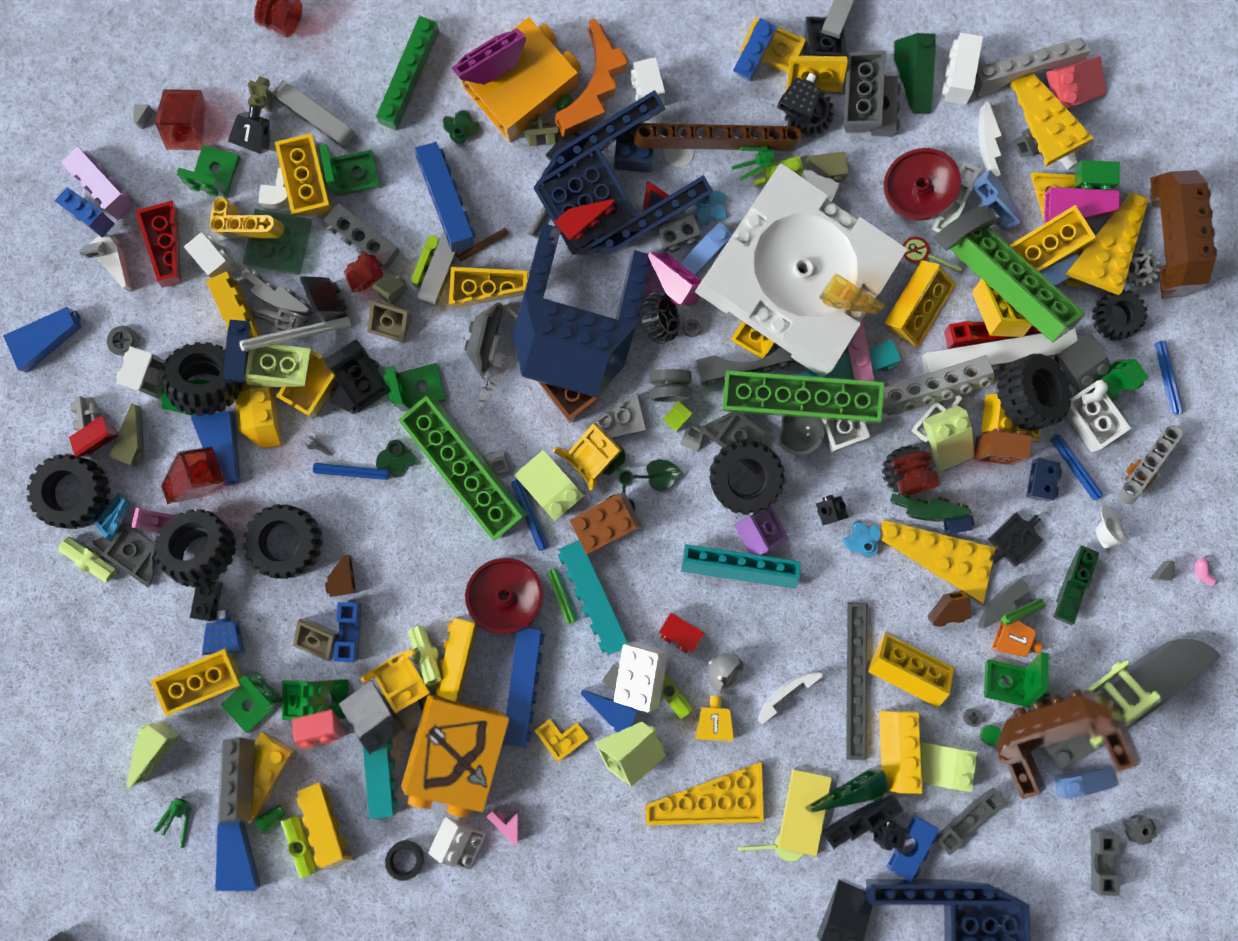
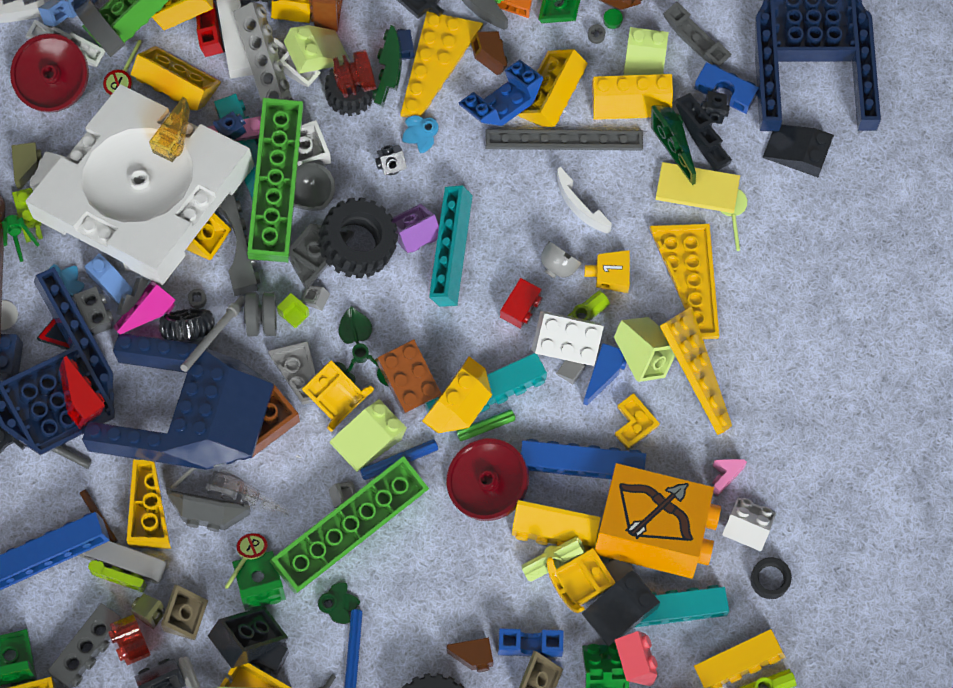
camera: 90 degrees left, 15 degrees down
(449, 379) = (249, 547): none -> piece
(580, 572) = (461, 399): none -> yellow wedge
(621, 797) = (689, 348): none -> yellow wing
(676, 360) = (232, 311): none -> light grey bar
(686, 264) = (128, 301): none -> dark grey slope
(858, 360) = (233, 131): none -> dark blue brick
(896, 624) = (508, 99): none -> blue slope

